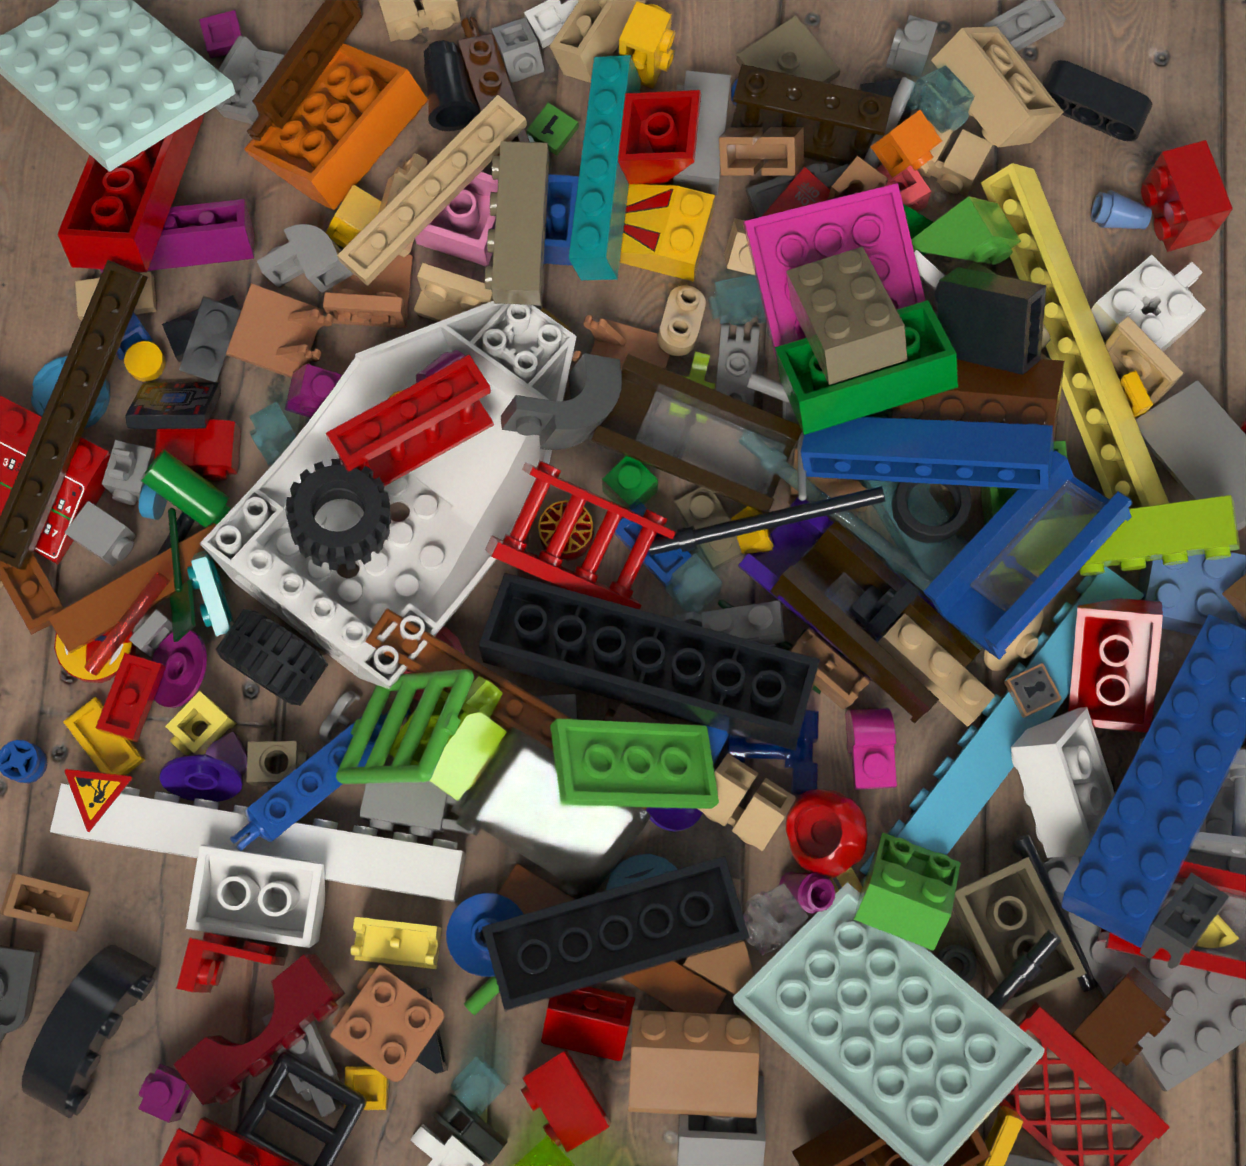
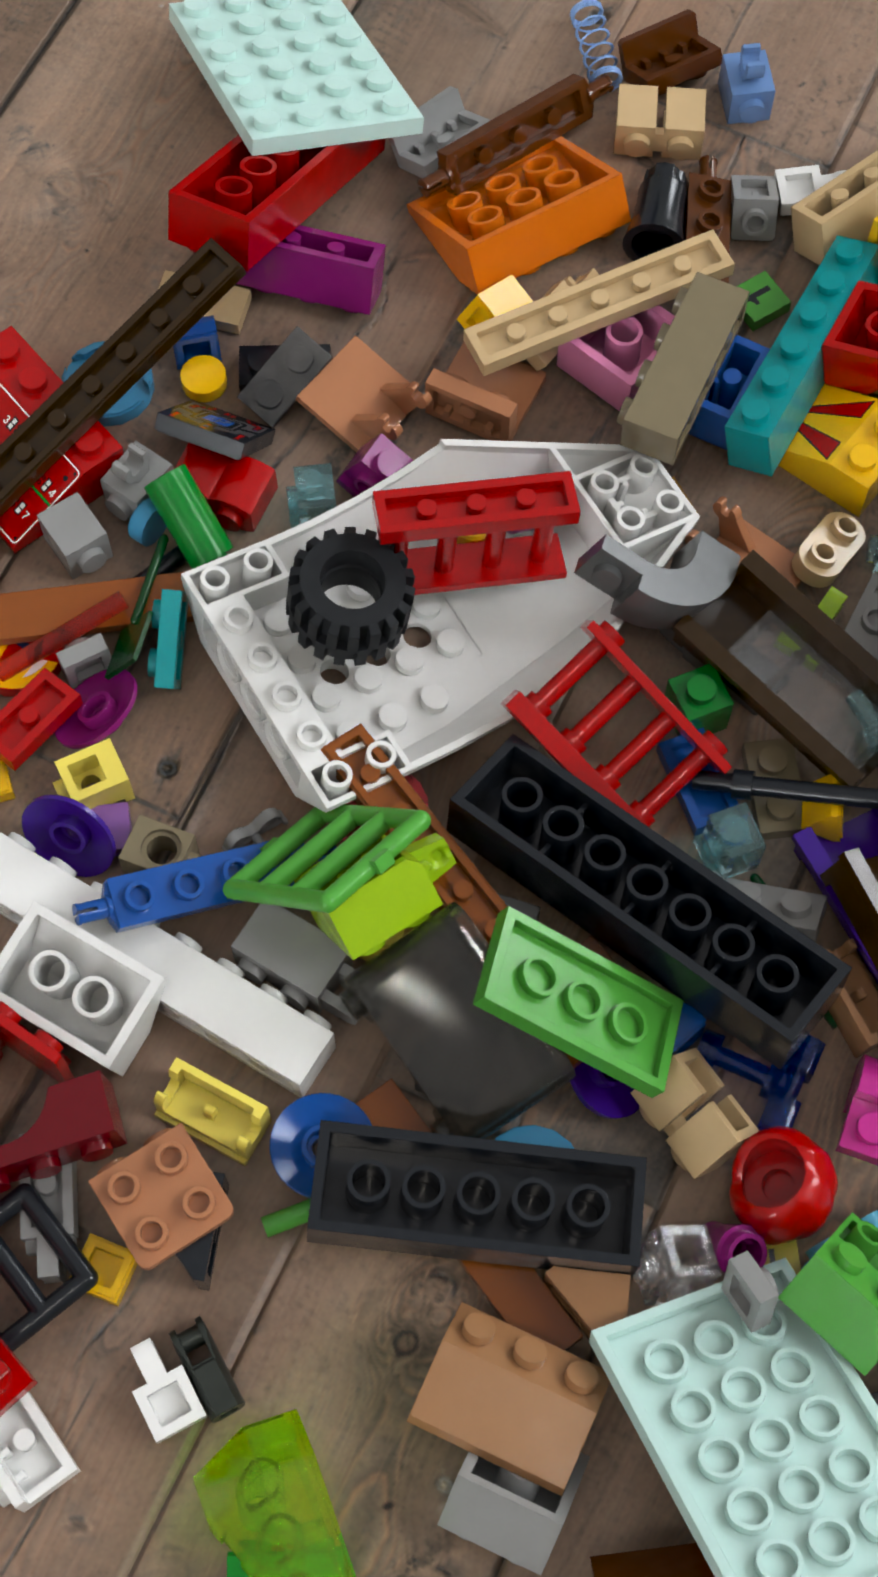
camera: 20 degrees right, 10 degrees down
(220, 32) = (430, 78): magenta plate -> none
(272, 656) = (207, 730): black tyre -> none
(306, 252) = (430, 326): light grey brick -> none
(448, 293) = (571, 419): tan bracket -> none
(478, 1085) = (238, 1319): clear light blue brick -> none
(565, 1101) = (334, 1378): red slope -> none
(580, 538) = (612, 735): wheel -> none
(589, 1022) = (400, 1300): red panel -> none
(833, 922) = (750, 1290): none -> light grey plate

